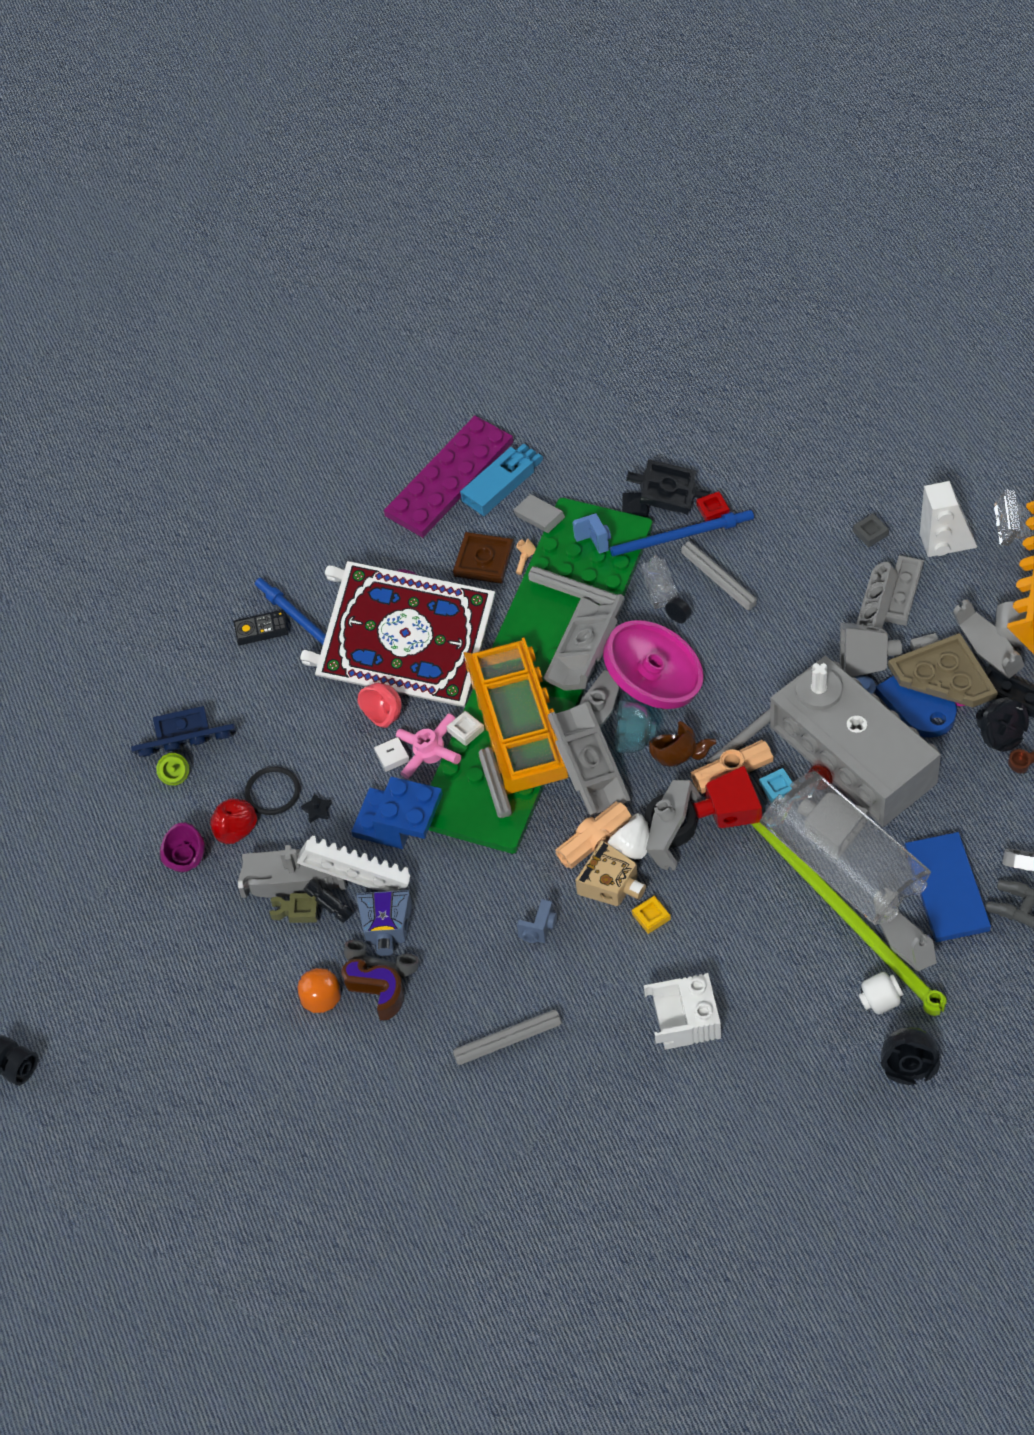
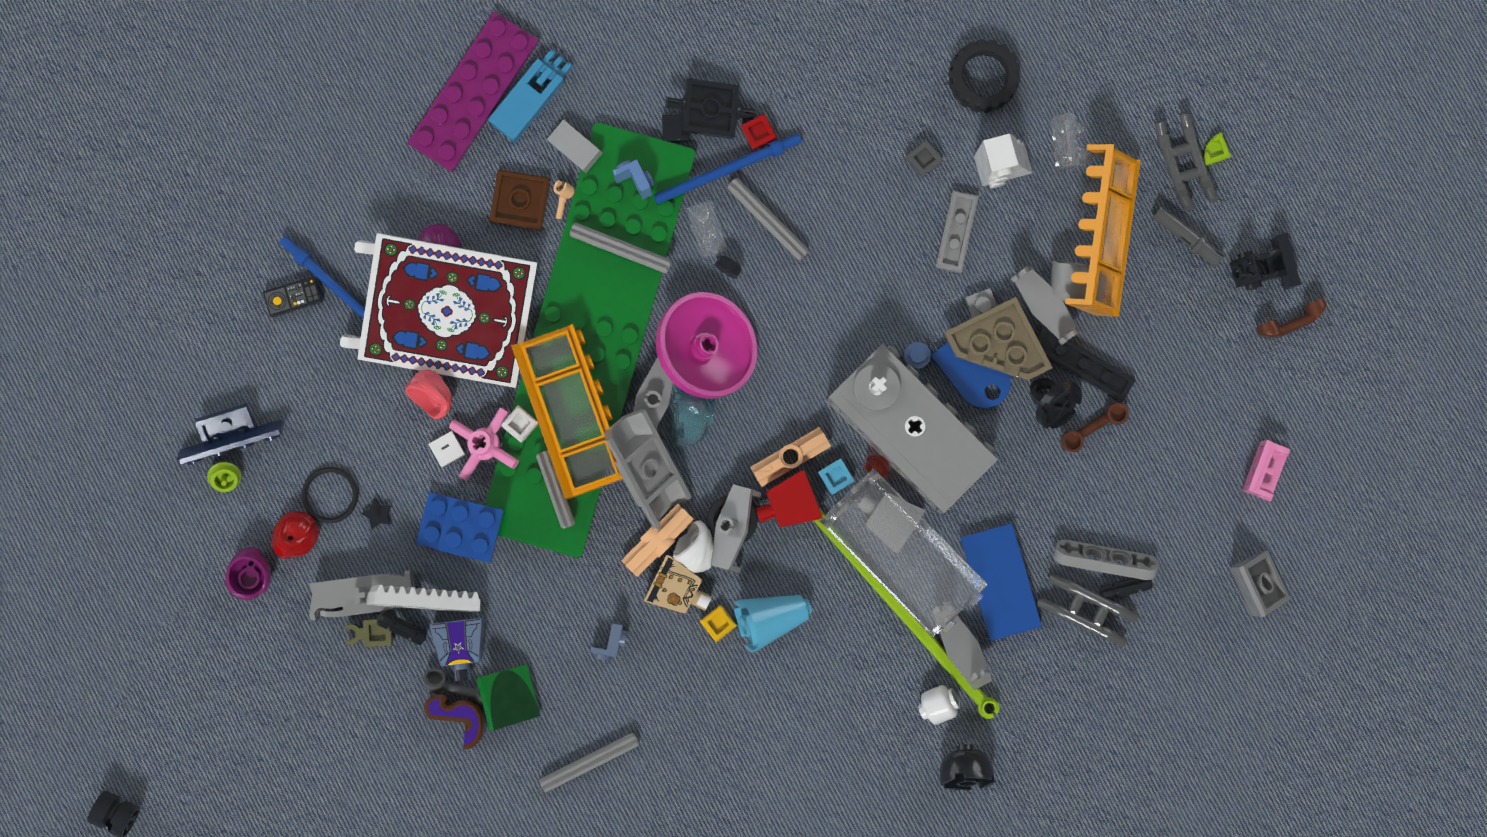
camera: 15 degrees left, 30 degrees up
(319, 990) = (403, 720): orange hair -> none
(428, 966) = (508, 697): none -> dark green tile
(583, 644) = (634, 321): light grey piece -> none
(677, 749) = (734, 438): reddish brown hair -> none
(685, 1011) = (756, 733): white piece -> none
(703, 903) = (769, 618): none -> medium azure cone
(744, 736) = (805, 411): light grey bar -> none
(865, 649) = (920, 318): light grey torso -> none
(881, 579) = (926, 255): light grey beam -> none
(922, 449) = (998, 52): none -> black tyre

